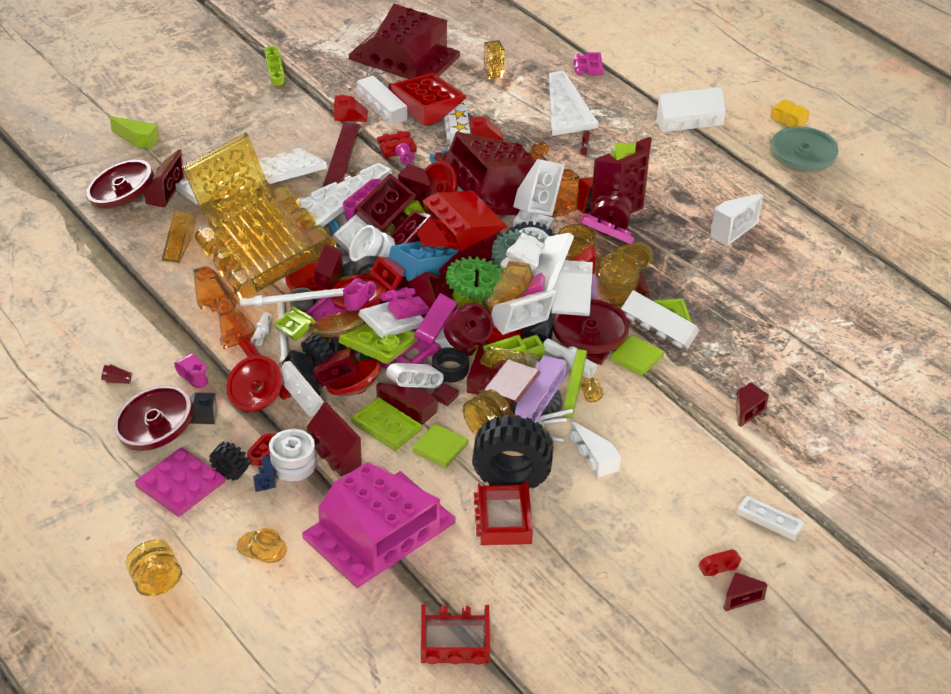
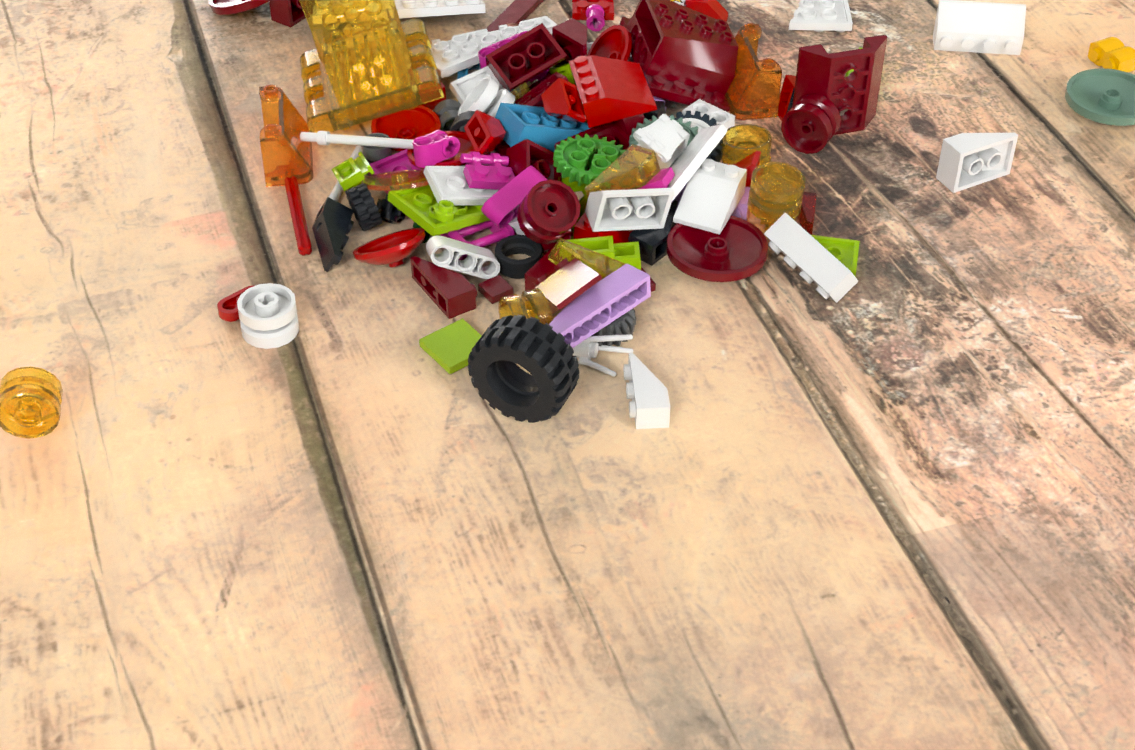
camera: 20 degrees right, 0 degrees up
(114, 374) = (124, 187): dark red cone -> none
(153, 418) = (134, 240): dark red dish -> none
(179, 236) = (283, 56): clear yellow slope -> none
(179, 481) = (128, 318): dark pink plate -> none
(192, 370) = (212, 199): dark pink piece -> none
(204, 408) = (194, 243): black slope -> none
(229, 460) = (189, 305): black tyre -> none
(248, 377) = (269, 227): red dish -> none
(262, 329) = (319, 173): white pin -> none
(262, 545) = (179, 411): clear yellow piece -> none
(265, 479) = (227, 334): dark blue bracket -> none
(300, 389) = (319, 244): white plate -> none
(328, 268) = (421, 114): dark red slope -> none
(335, 440) = (324, 311): dark red slope -> none
(336, 367) = (374, 229): dark red slope -> none
(374, 522) = (322, 411): dark pink wedge -> none
(386, 424) = (405, 307): lime tile -> none
(455, 637) = (341, 574): window -> none
(503, 514) = (485, 443): red window -> none
(540, 188) = (727, 75): white slope -> none
(558, 351) = (671, 280): white piece -> none
(575, 382) = (659, 308): lime beam -> none
(585, 143) = (827, 39): dark red tile -> none
(592, 390) = (680, 322): clear yellow wheel -> none
(597, 358) = (712, 288): dark red tile -> none
(606, 227) = (790, 136): dark pink plate -> none
(637, 355) = (764, 295): lime tile -> none
(640, 251) = (821, 177): clear yellow piece -> none
(720, 562) = (739, 570): red plate -> none
(744, 591) = (751, 615): dark red slope -> none
(750, 403) = (883, 383): dark red slope -> none
(770, 518) = (840, 531): white plate -> none

